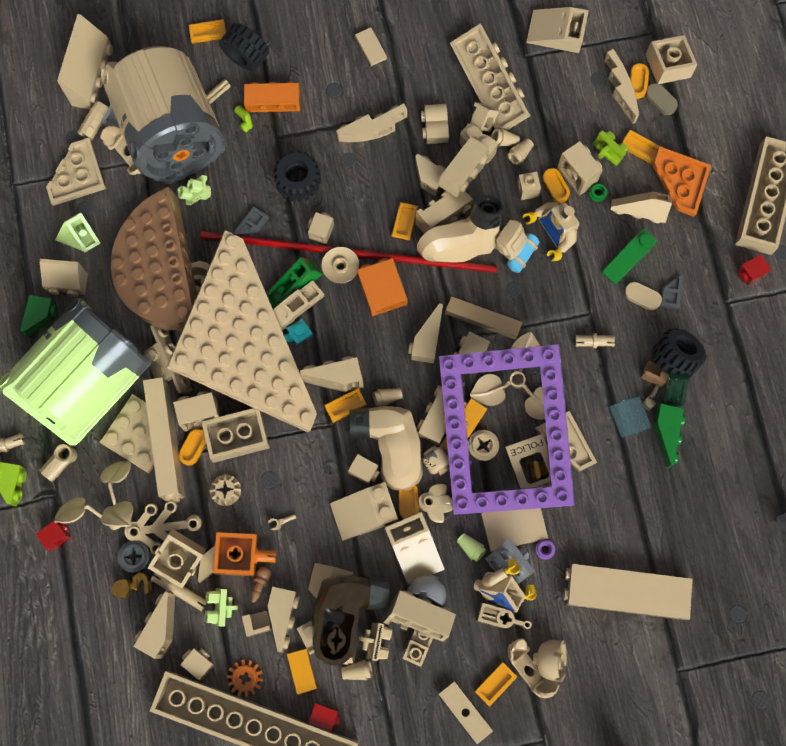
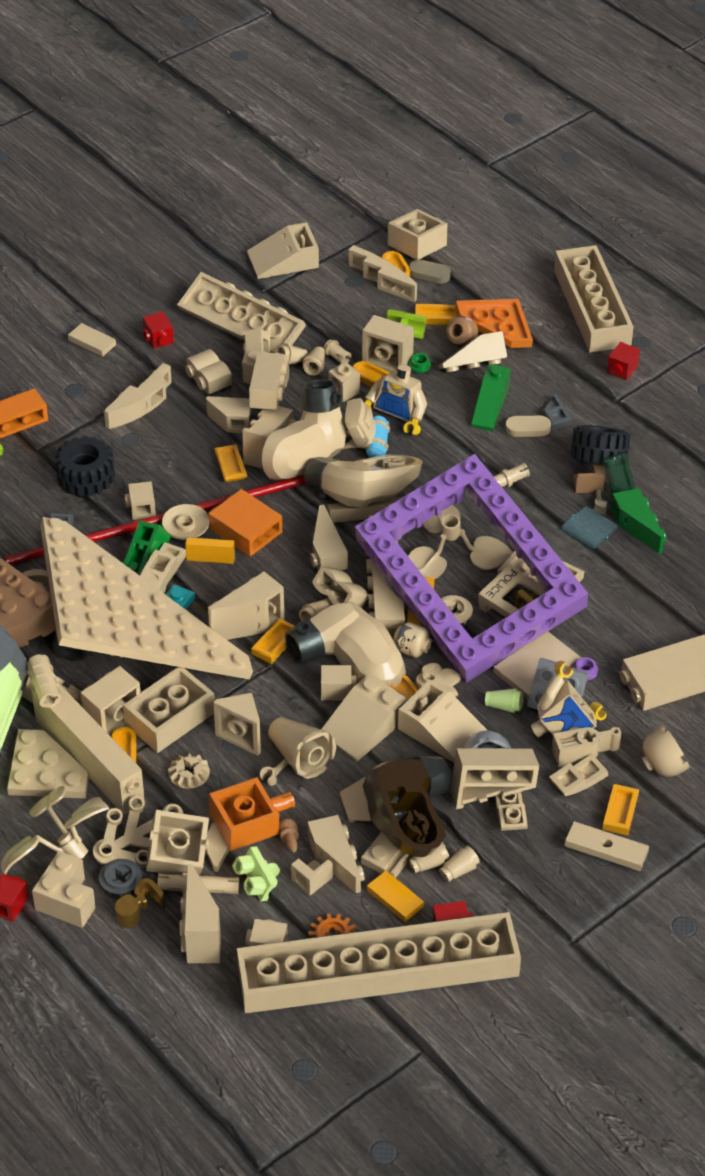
camera: 30 degrees left, 30 degrees down
(85, 551) = (62, 892): none -> tan brick
(149, 384) = (44, 681): none -> tan axle
(277, 475) = (238, 722): none -> tan slope
(306, 514) = (302, 746): none -> tan cone
(343, 301) = (210, 550): none -> light orange tile
(372, 641) = (459, 824): tan hips -> none
(411, 388) = (339, 587): none -> tan brick
(421, 63) = (158, 330): none -> red brick
(484, 640) = (580, 776): none -> tan slope
(490, 297) = (362, 480): none -> tan piece
(519, 659) = (625, 770): tan piece -> none
(542, 150) = (333, 349): none -> tan pin
(646, 179) = (461, 330): none -> medium nougat head

